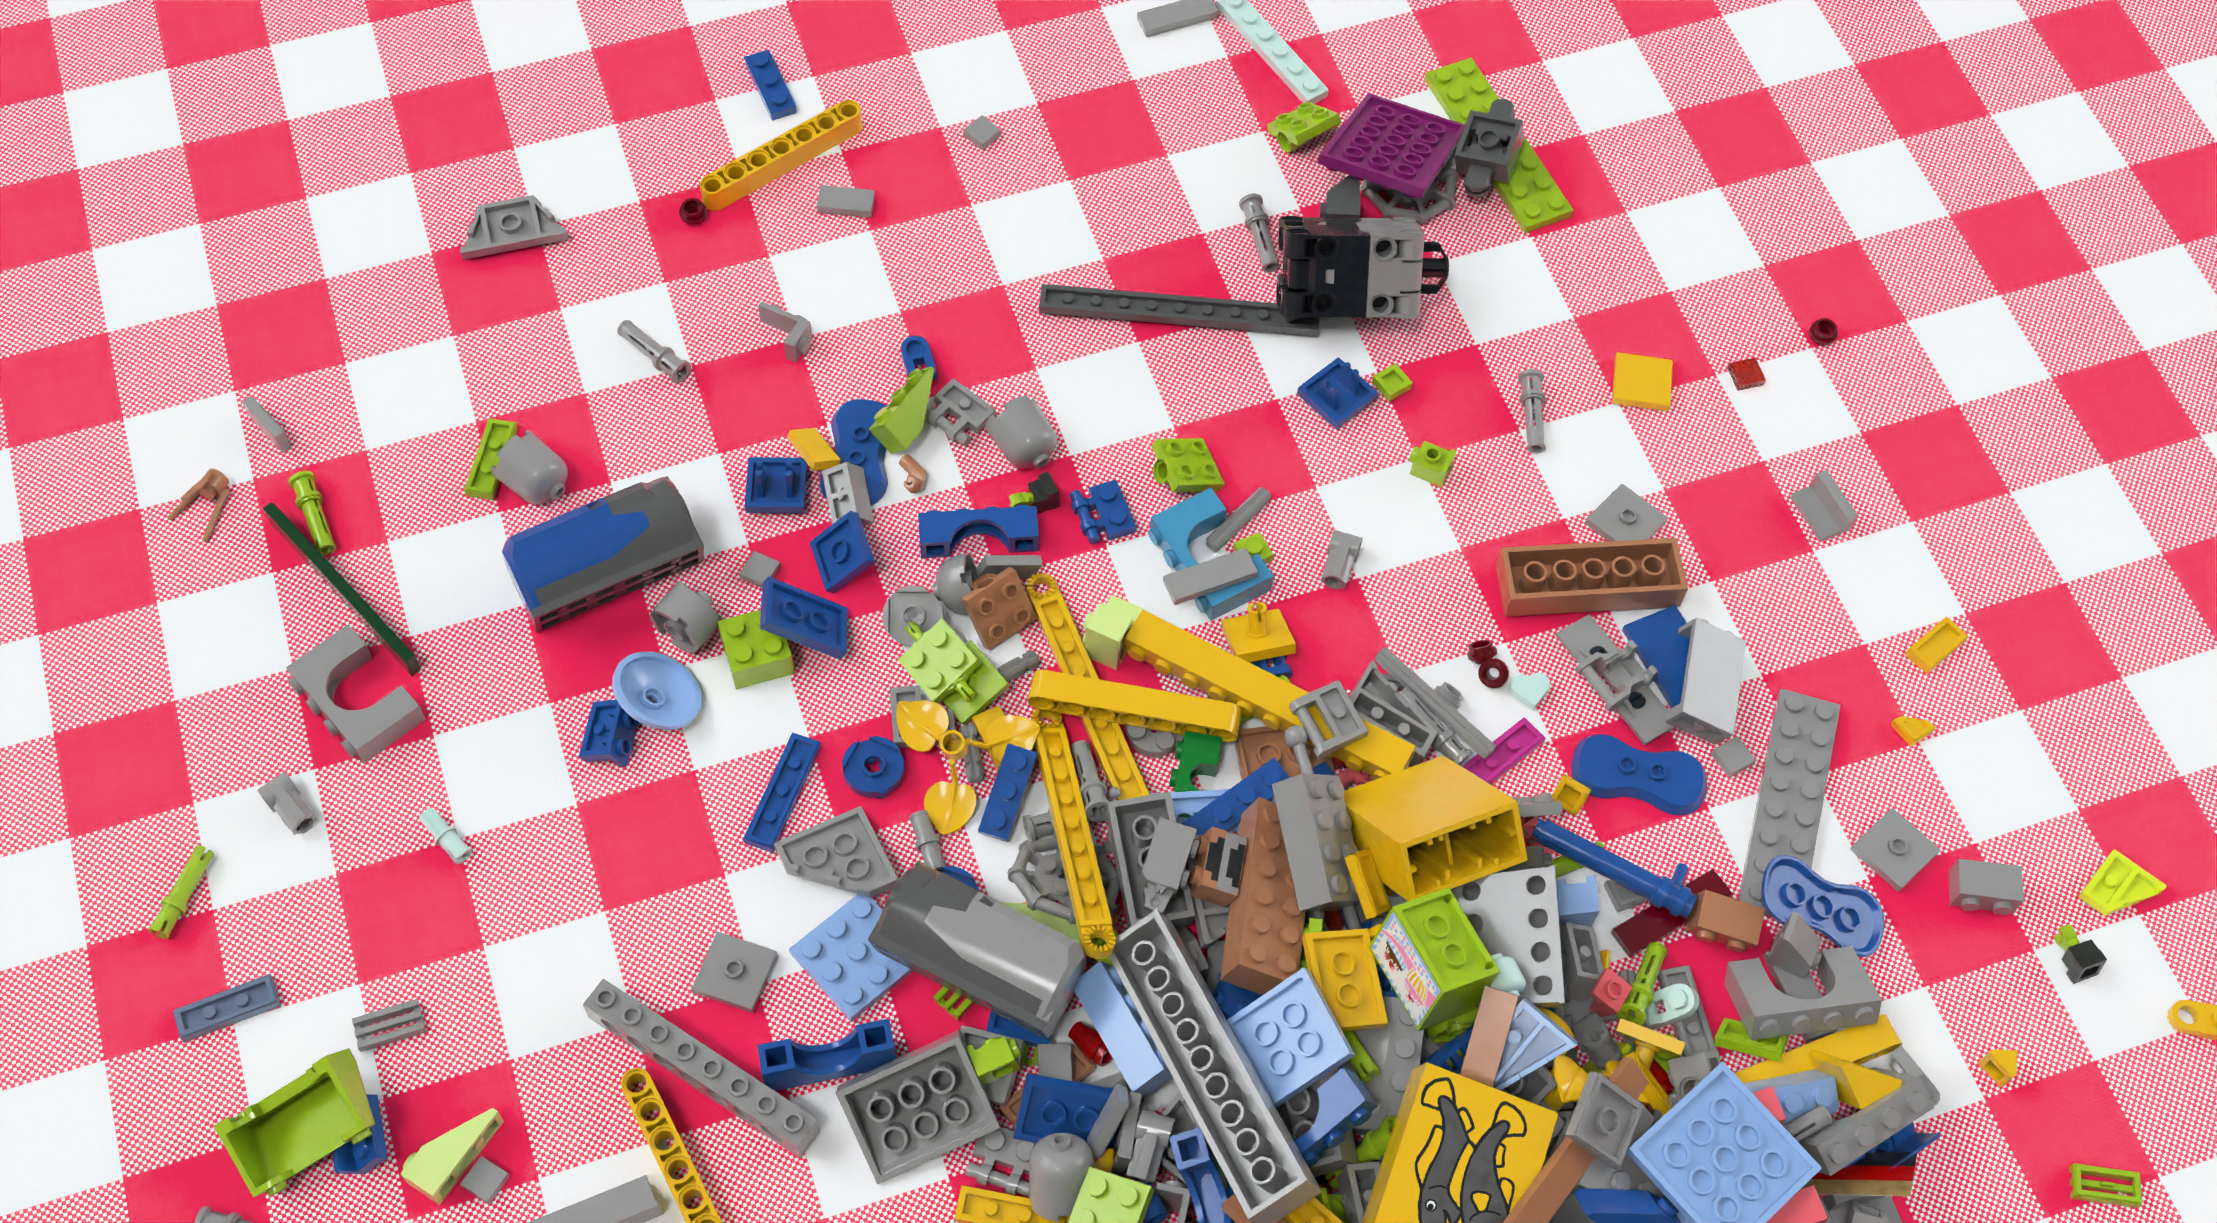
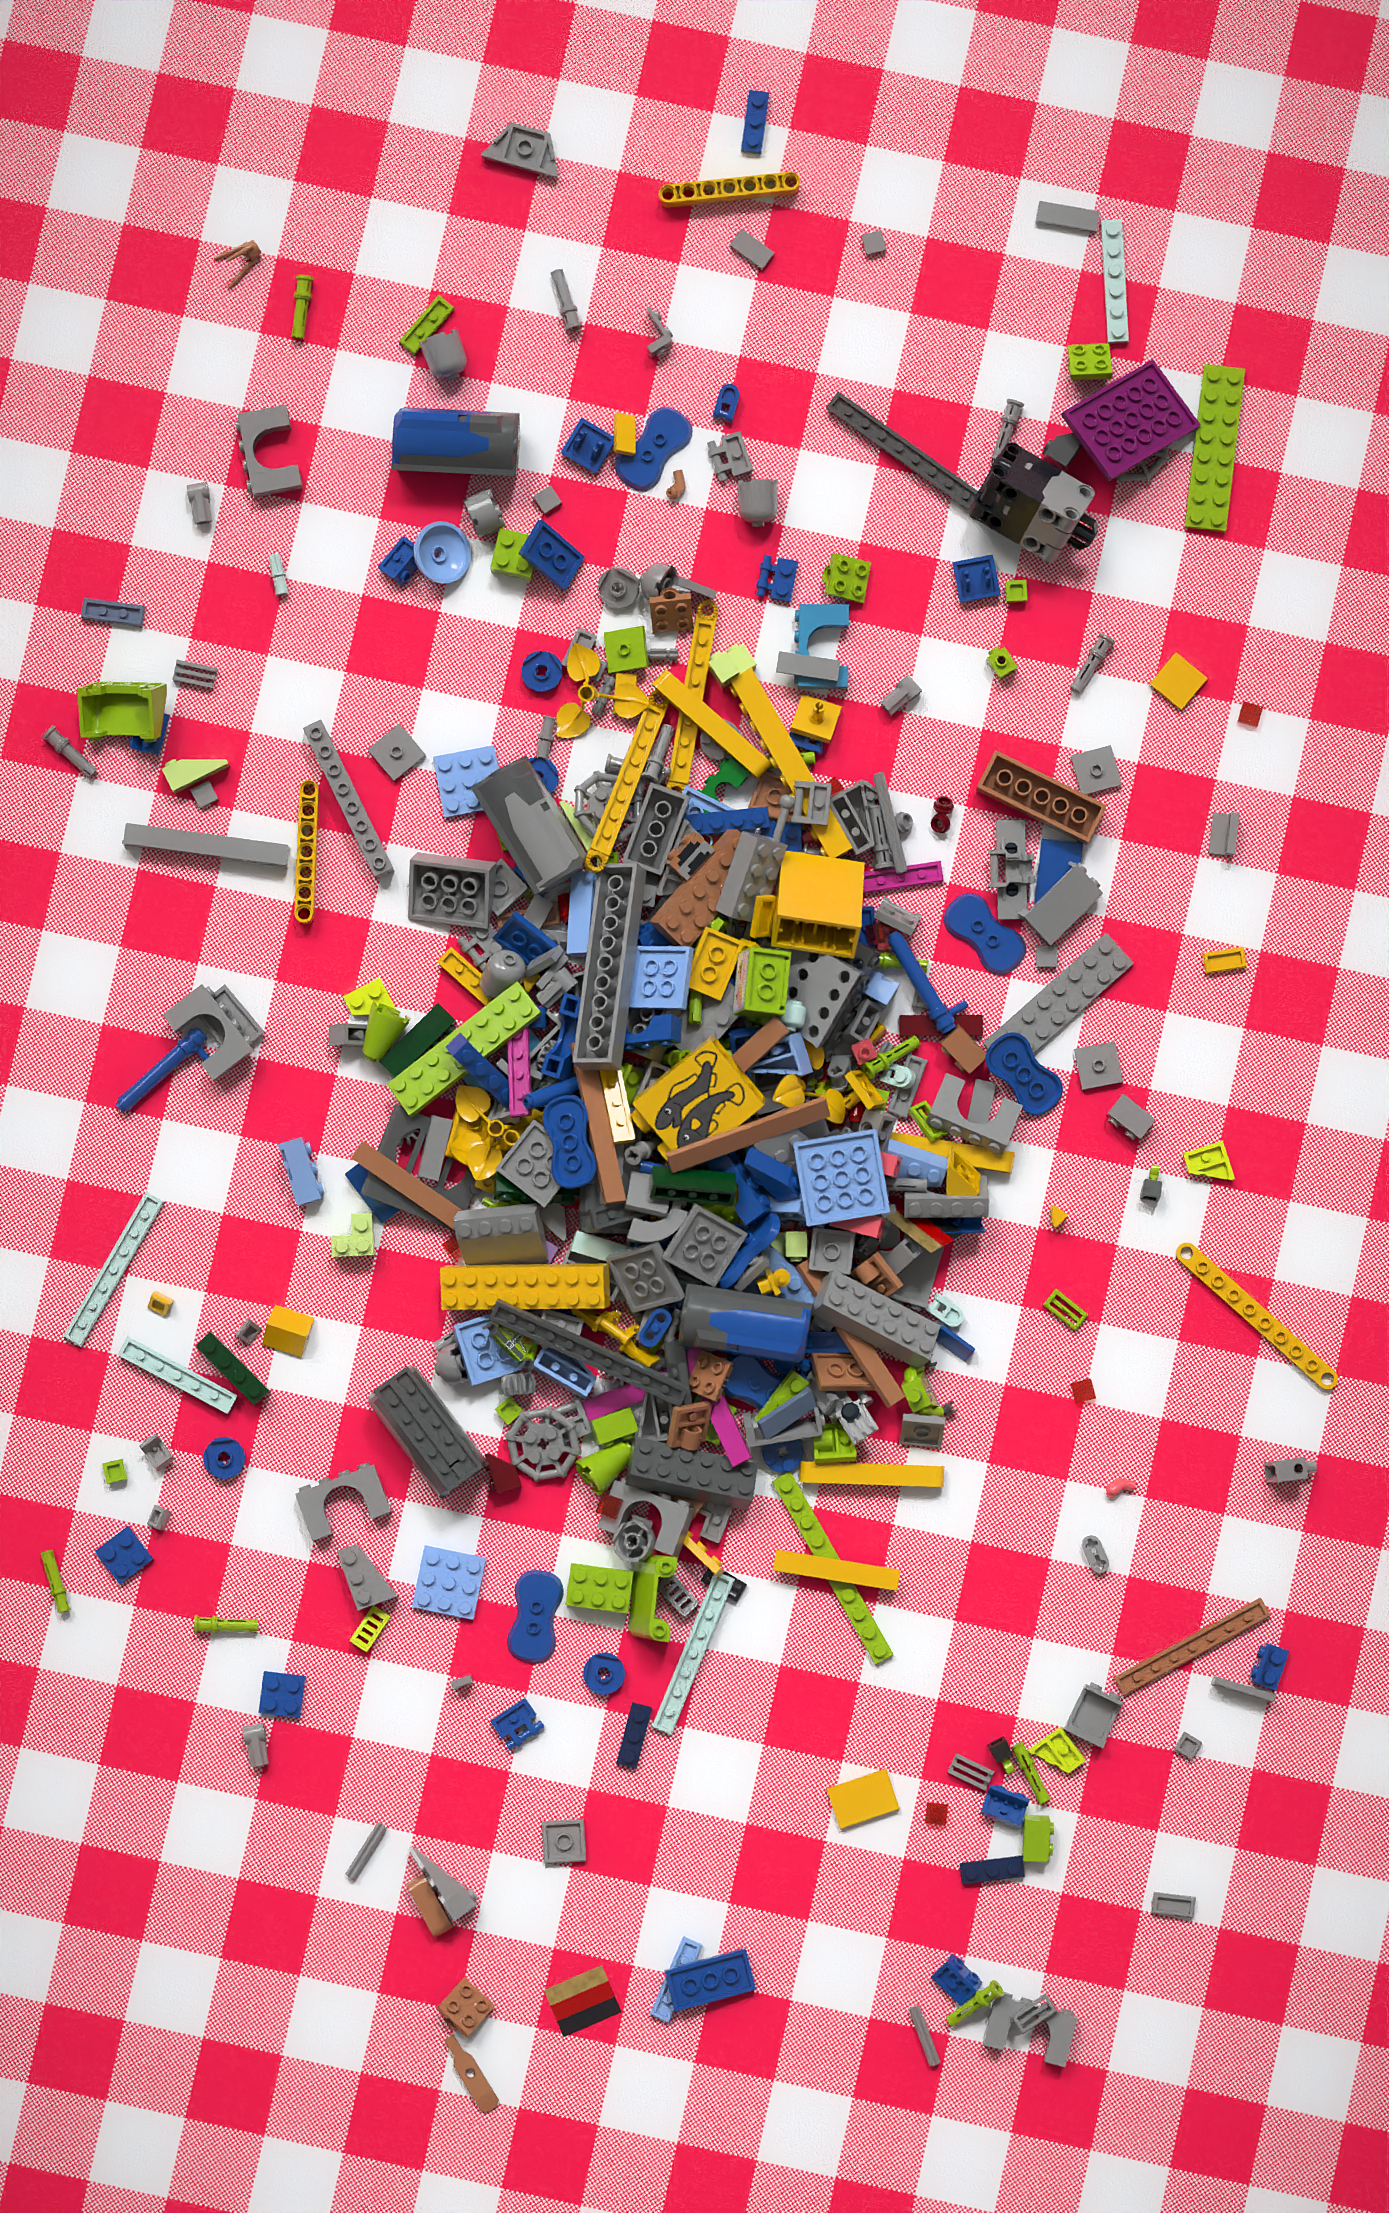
camera: 35 degrees right, 25 degrees up
(176, 902) = (110, 532): lime pin -> none
(267, 424) = (302, 225): light grey tile -> none
(342, 589) = (293, 369): dark green tile -> none
(692, 211) = (647, 196): dark red plate -> none
(782, 792) = (482, 656): blue tile -> none
(792, 1064) = (432, 839): blue arch -> none
(839, 855) = (491, 716): light grey plate -> none
(842, 552) = (600, 519): blue plate -> none
(847, 492) = (625, 482): light grey hinge -> none
(905, 415) = (693, 442): lime slope -> none
(939, 661) = (615, 629): lime plate -> none
(995, 1058) = (505, 890): lime brick -> none
(1007, 792) = (608, 733): blue plate -> none
(1012, 526) = (668, 538): blue arch -> none
(1041, 493) = (746, 545): pearl dark grey piece -> none
(1166, 862) = (659, 839): light grey hinge -> none
(1238, 519) = (857, 631): light grey axle -> none
(1254, 545) = (852, 658): lime plate -> none
(1489, 147) = (1195, 456): dark grey brick -> none
(1529, 689) = (957, 845): light aqua tile -> none
(1571, 794) = (932, 923): yellow slope -> none
(1604, 1120) = (787, 1122): light grey tile -> none
(1653, 1092) = (843, 1113): yellow tile -> none
(1795, 947) = (988, 1088): light grey slope -> none
(1823, 331) = (1327, 709): dark red plate -> none
(1906, 1065) = (1002, 1191): light grey plate -> none
(1912, 729) = (1167, 1002): yellow tile -> none

